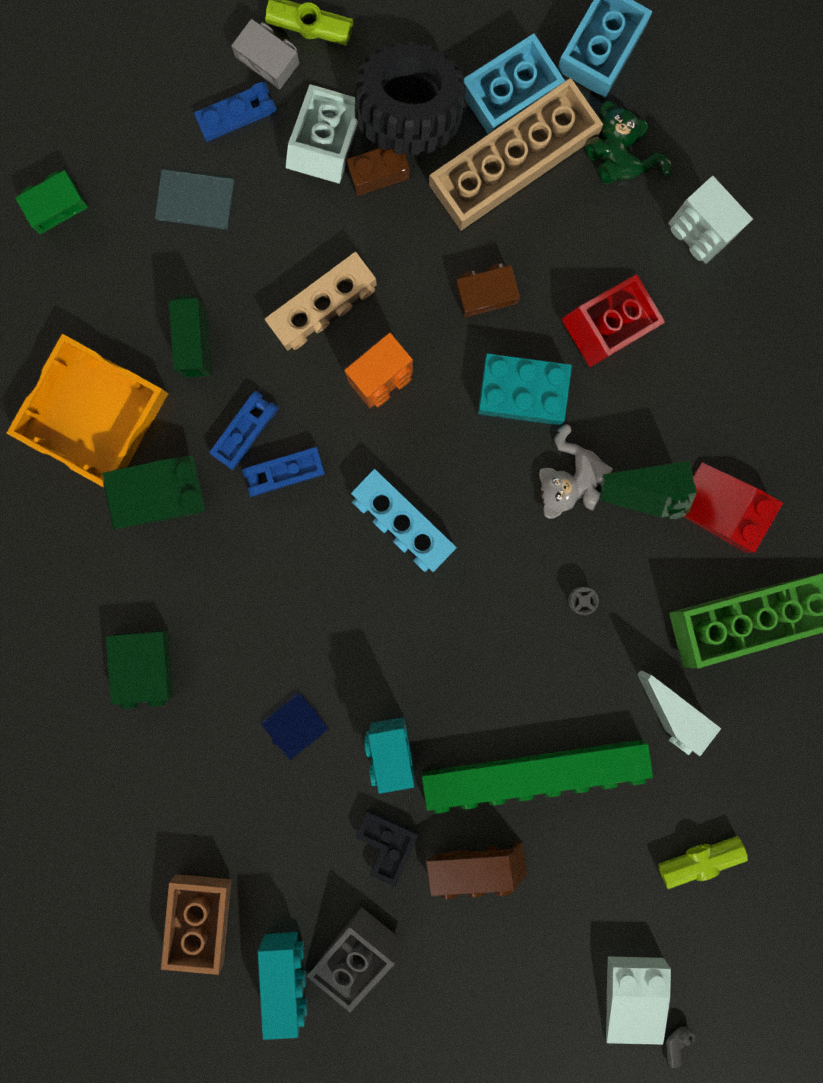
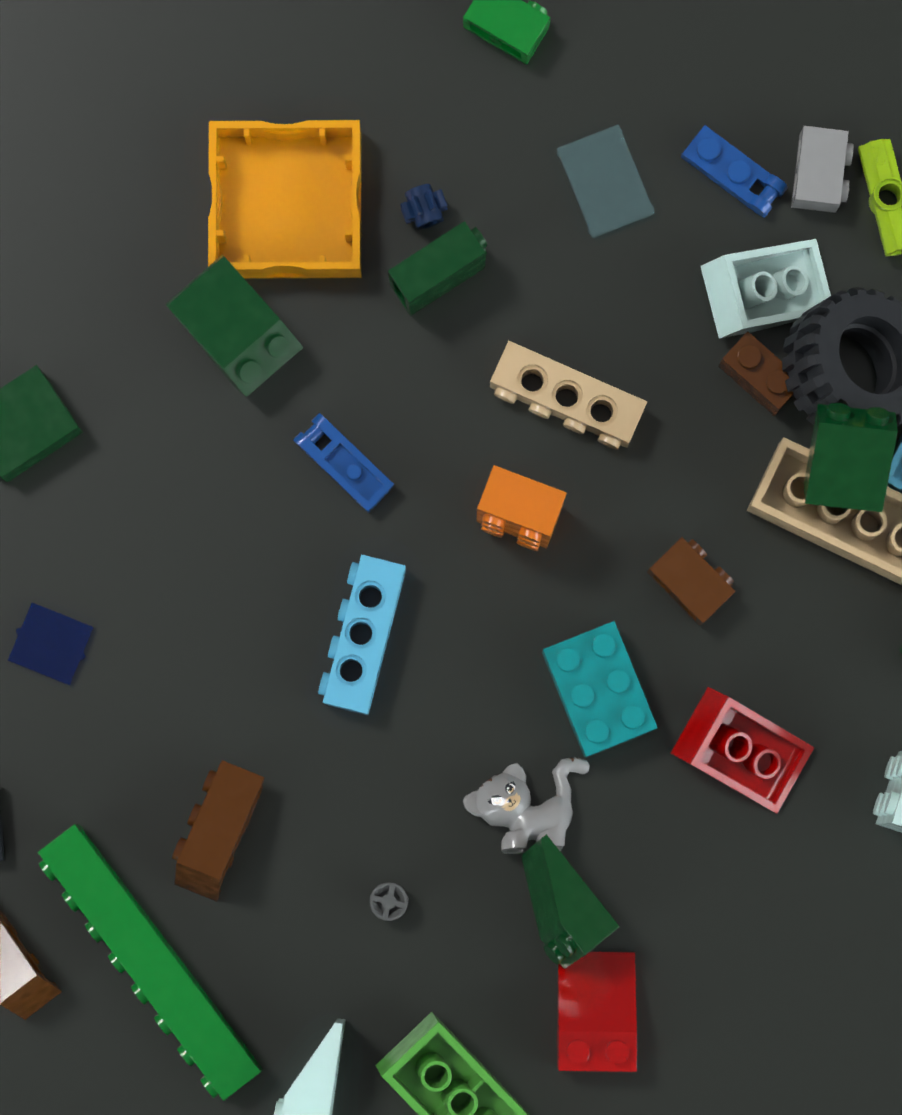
camera: 65 degrees right, 5 degrees down
(144, 325) = (424, 206): none -> dark blue gear
(243, 430) = (365, 389): blue plate -> none
(392, 761) = (79, 770): teal brick -> none
(470, 133) = (850, 457): none -> dark green brick
(475, 685) = (216, 829): none -> reddish brown wedge

